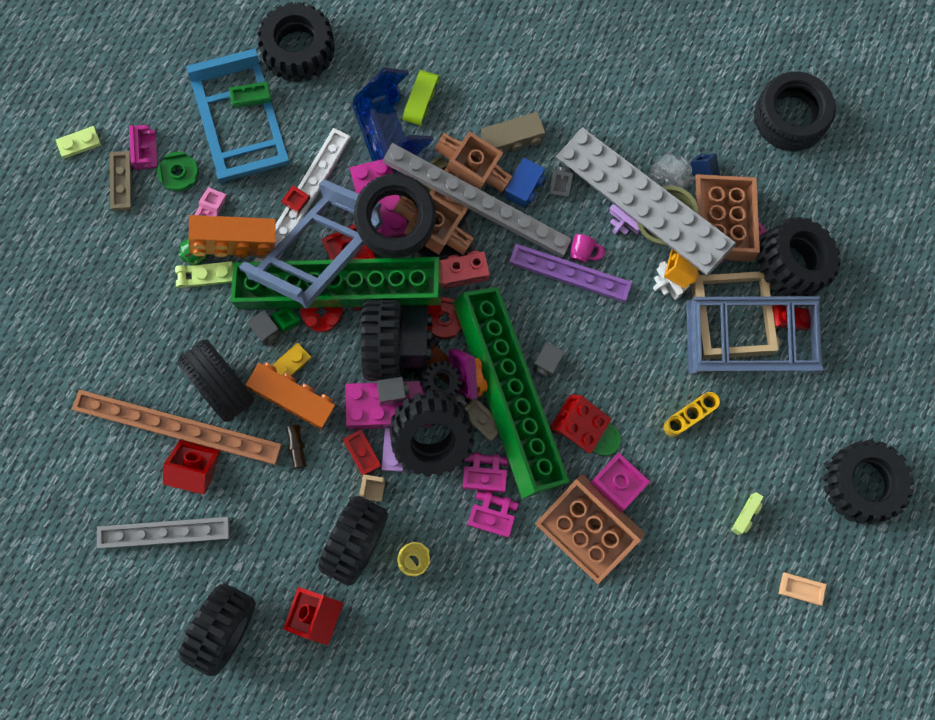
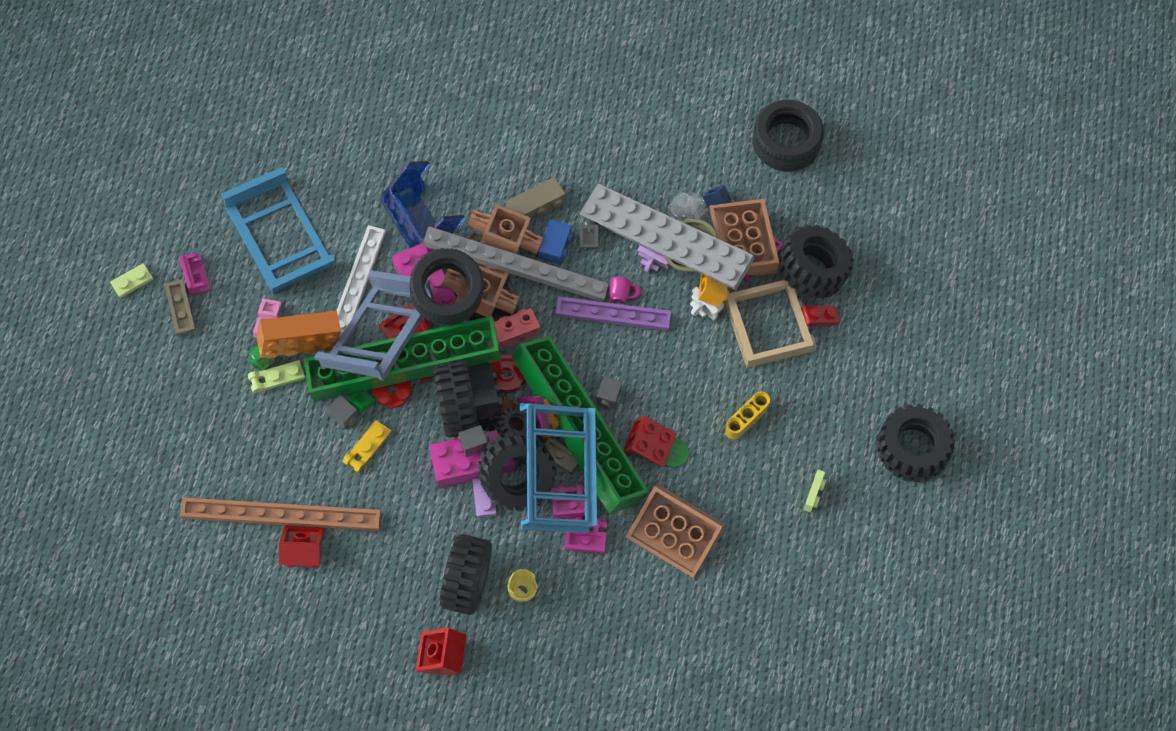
camera: 10 degrees left, 10 degrees down
(163, 532) = (288, 608): light grey plate -> none
(168, 167) = (231, 300): green plate -> none
(215, 380) = (311, 461): black tyre -> none
(217, 629) = (360, 672): black tyre -> none
(250, 94) = (284, 209): green plate -> none
(290, 396) = (381, 463): orange brick -> none
(292, 19) = (322, 174): black tyre -> none
(295, 199) = (347, 294): red plate -> none
(296, 446) = (394, 510): dark brown pin -> none
(362, 452) = (455, 504): red plate -> none
(372, 488) = (472, 527): tan panel -> none
(420, 96) = (443, 184): lime beam -> none
(510, 448) = (590, 496): none -> dark azure piece
(620, 482) = (695, 485): dark pink plate -> none
(695, 361) = (744, 371): sand blue piece -> none
(802, 589) = (877, 547): light nougat tile -> none

